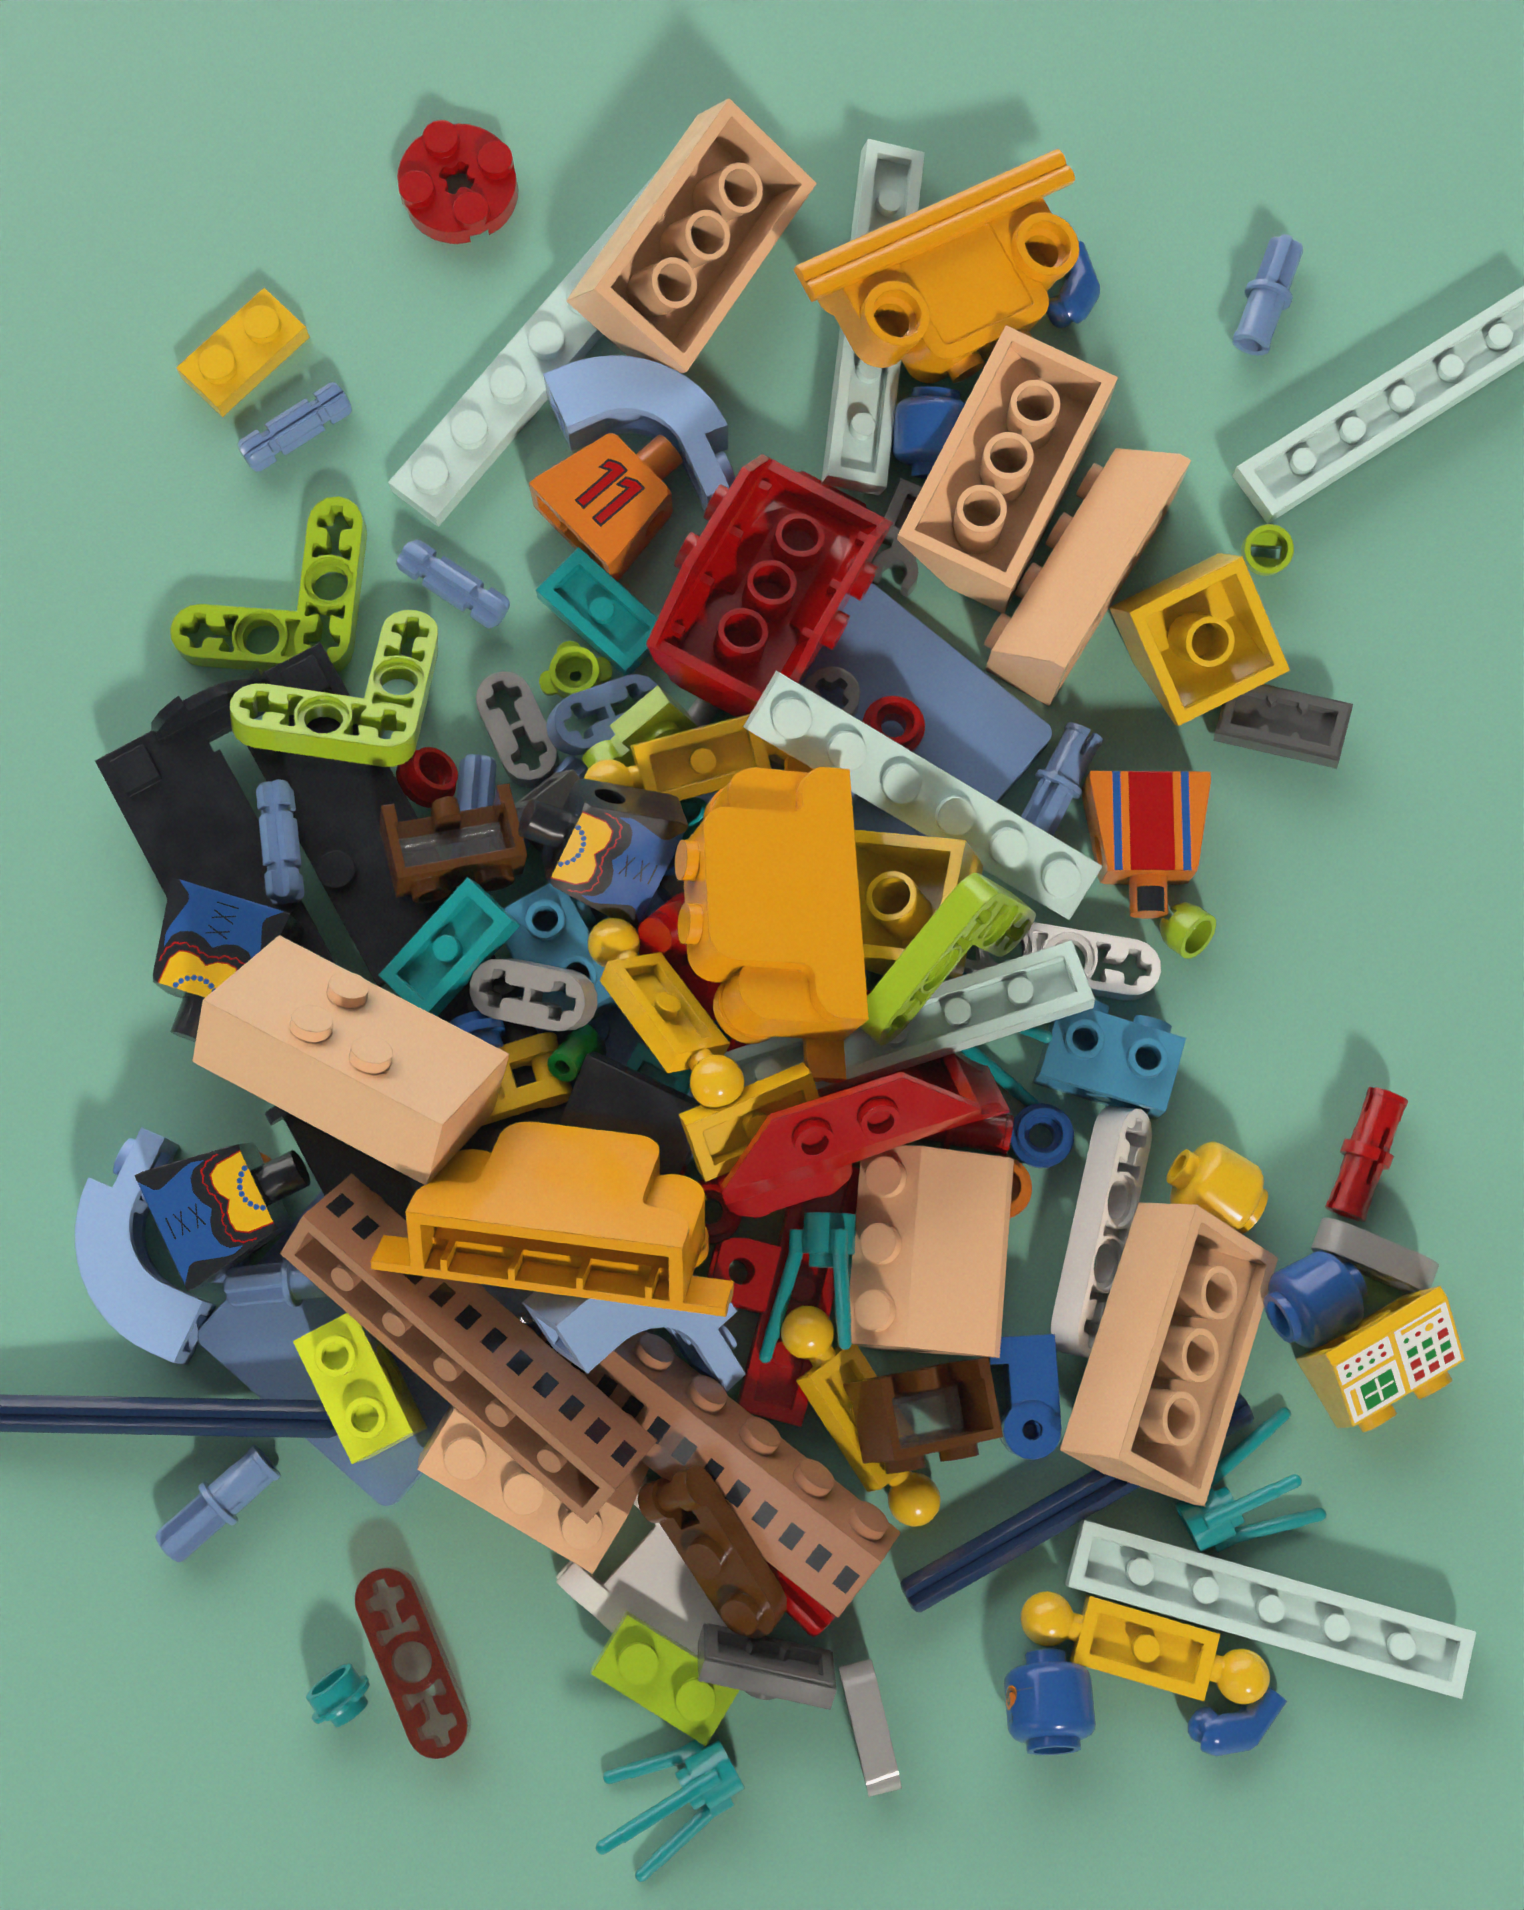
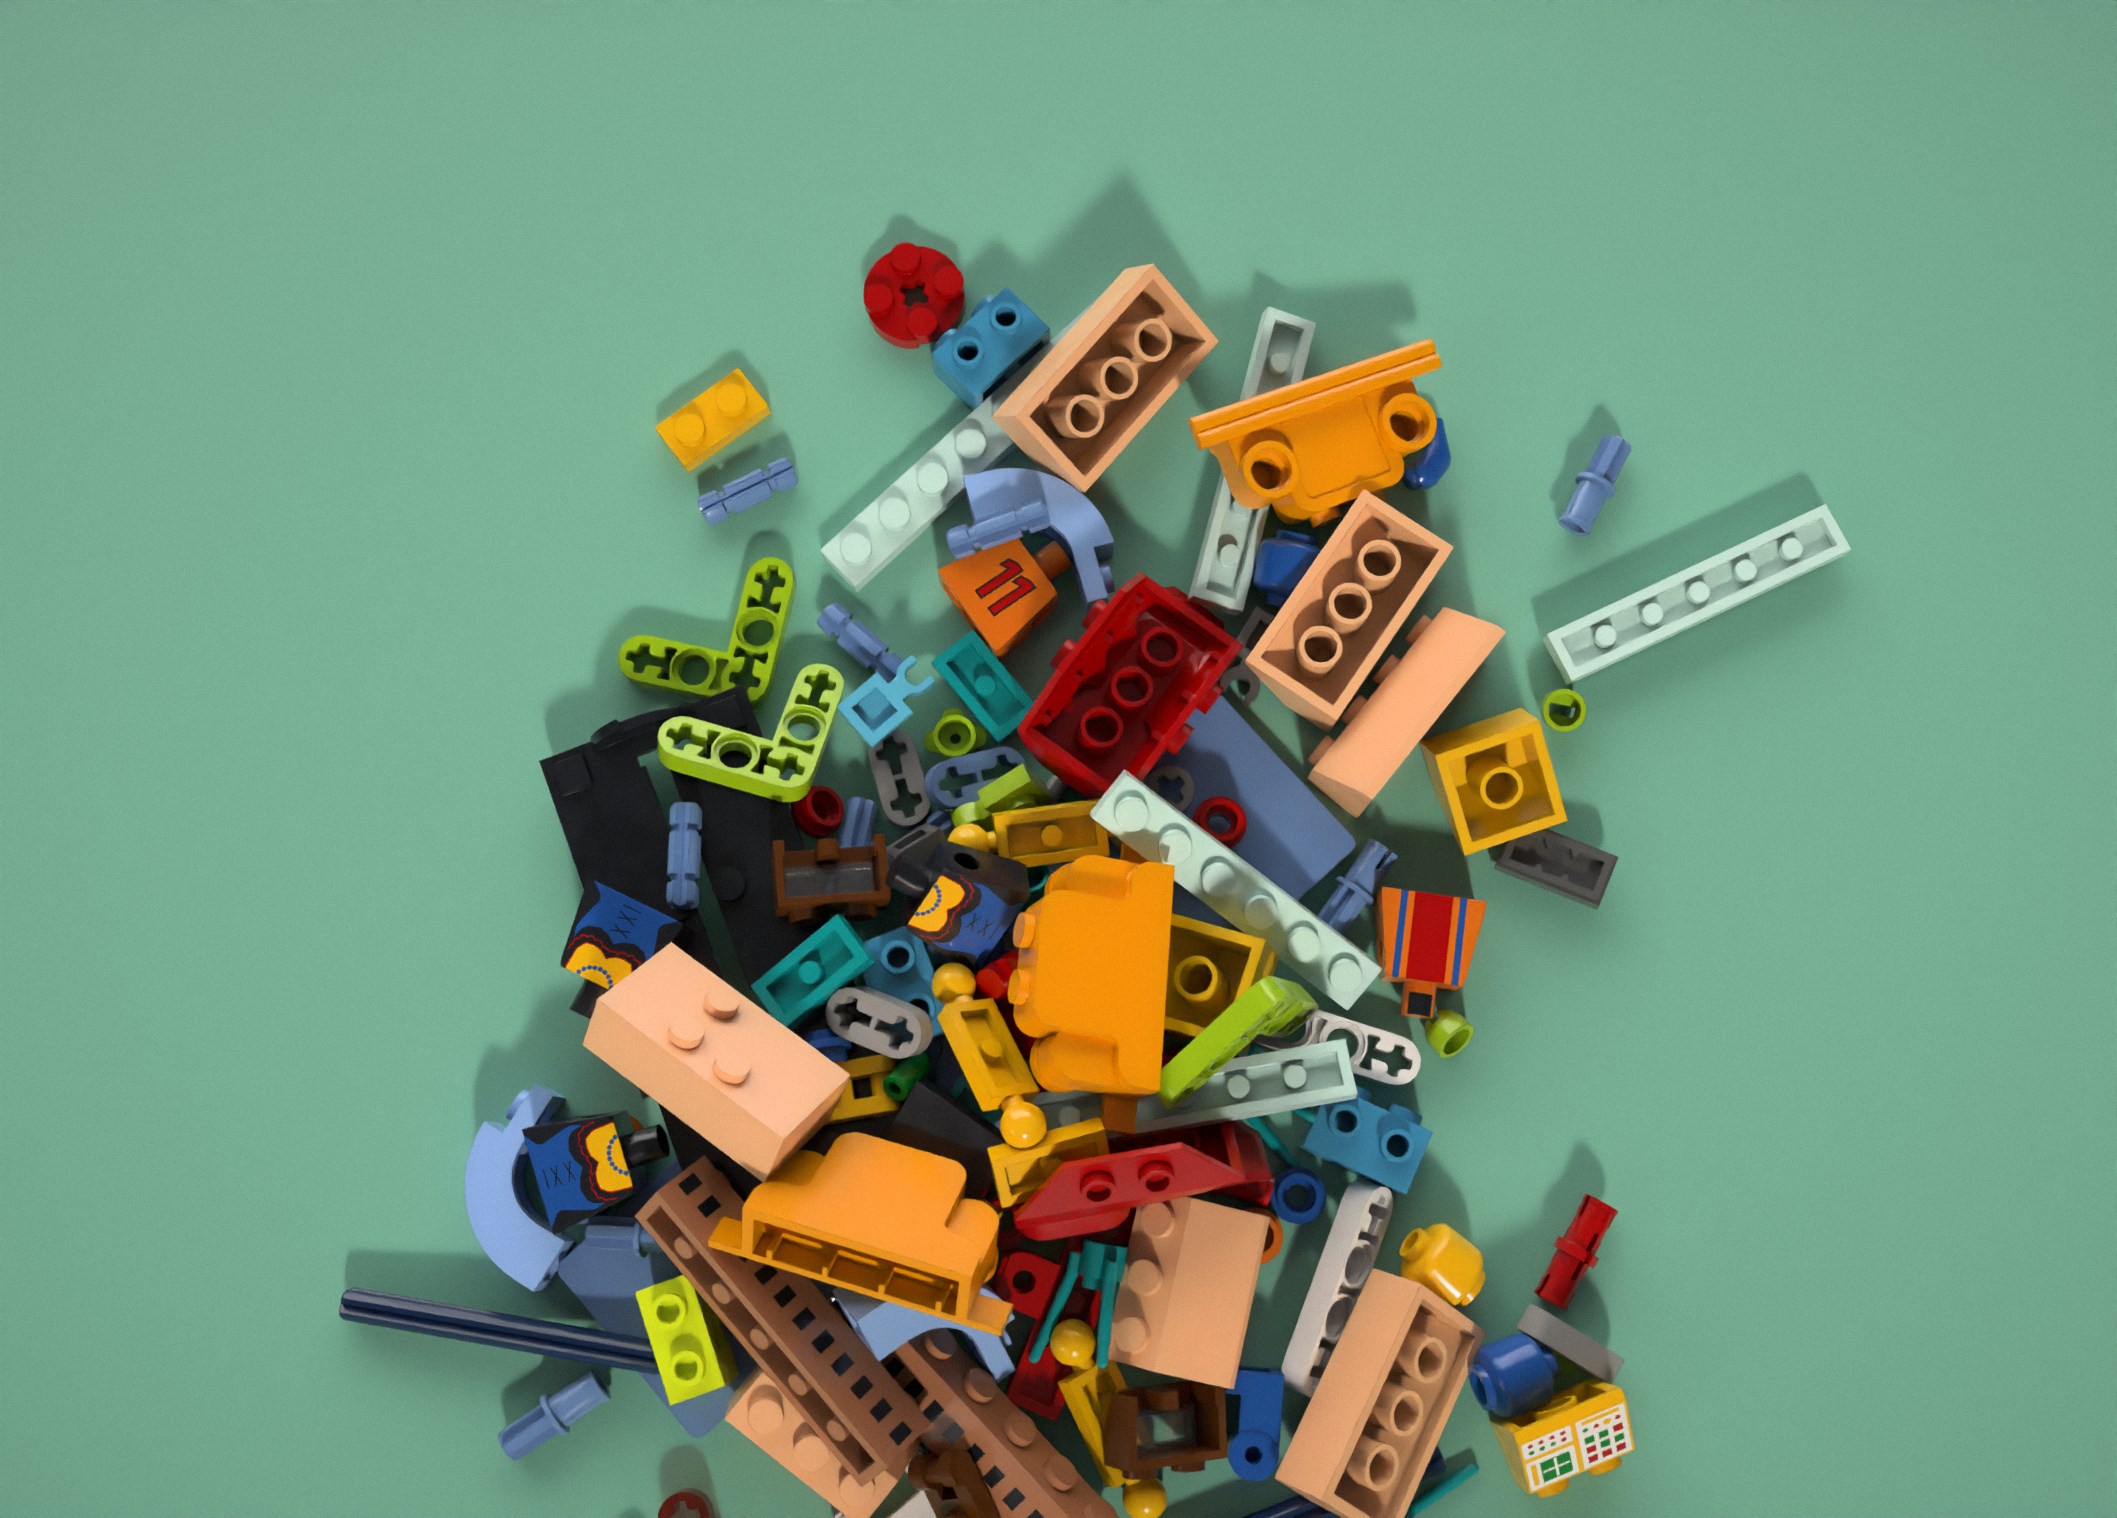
camera: 10 degrees right, 0 degrees up
(483, 647) = (879, 706): none -> medium azure plate
(552, 226) = (988, 347): none -> dark azure brick
(592, 425) = (998, 528): none -> medium blue axle

